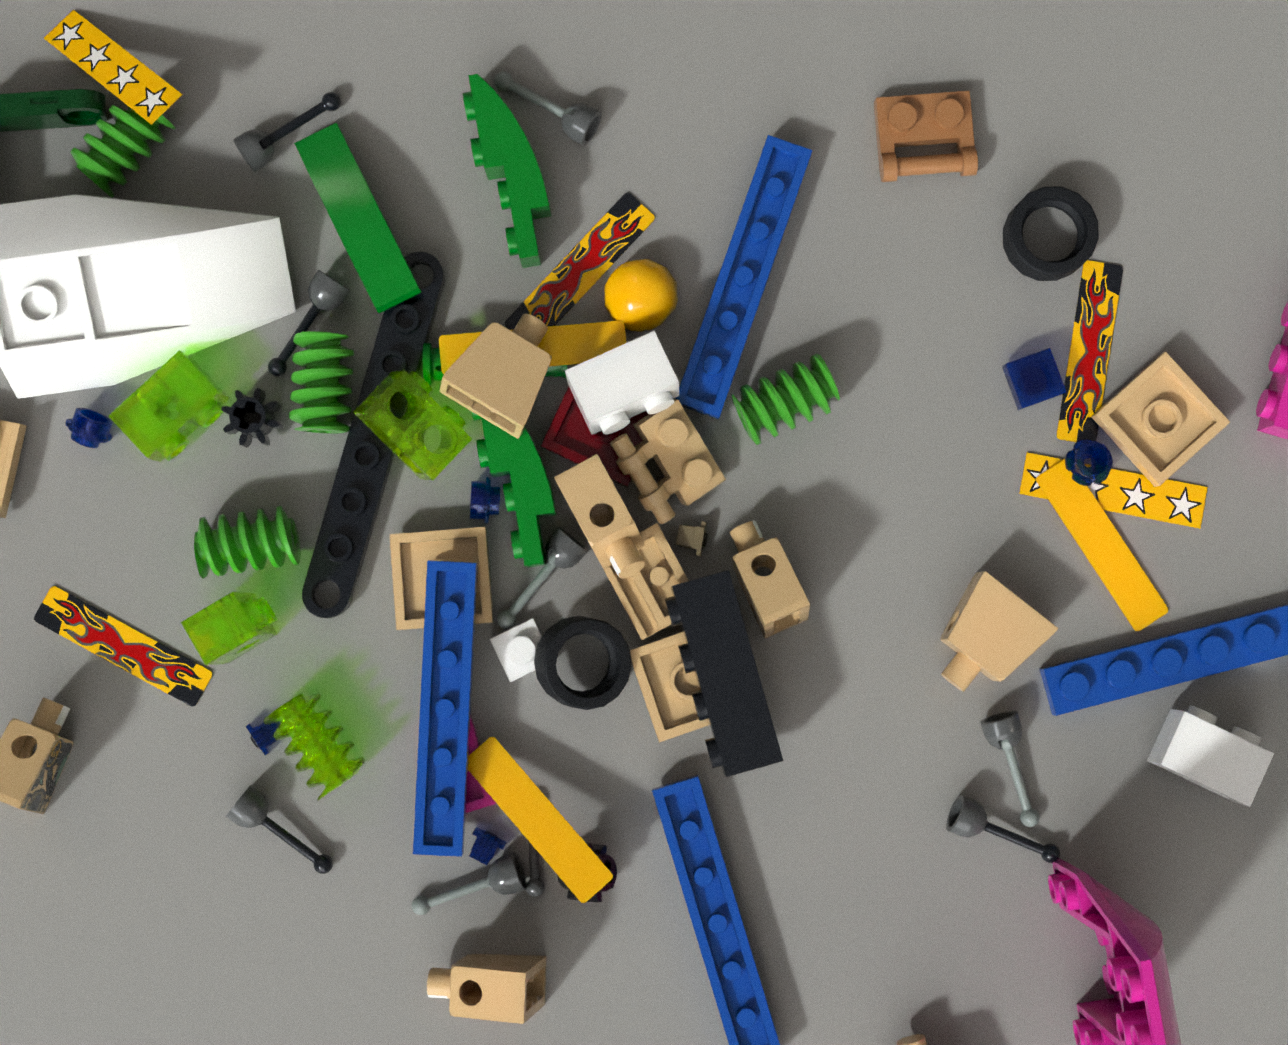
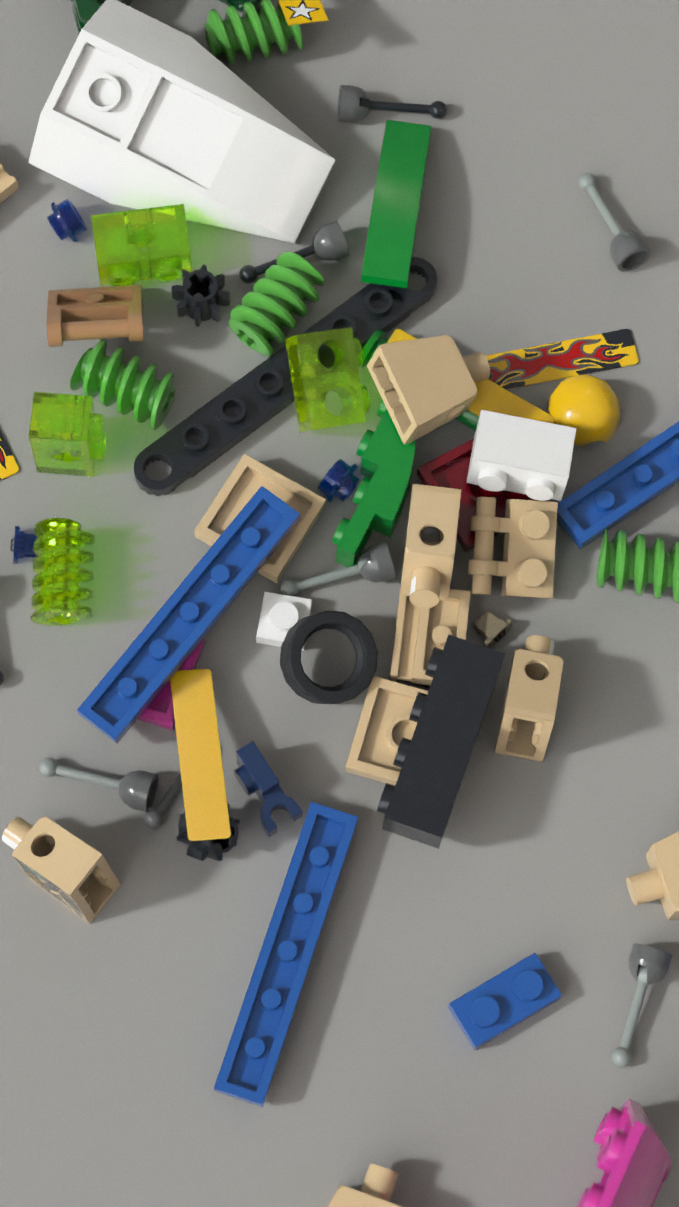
camera: 35 degrees right, 15 degrees down
(170, 491) = (95, 314): none -> medium nougat plate
(485, 845) = (137, 756): clear blue piece -> none
(508, 155) = (547, 243): green slope -> none
(594, 799) = (257, 777): none -> dark blue plate
(910, 837) = (504, 1001): none -> blue plate
(970, 819) = (568, 1021): hinge -> none

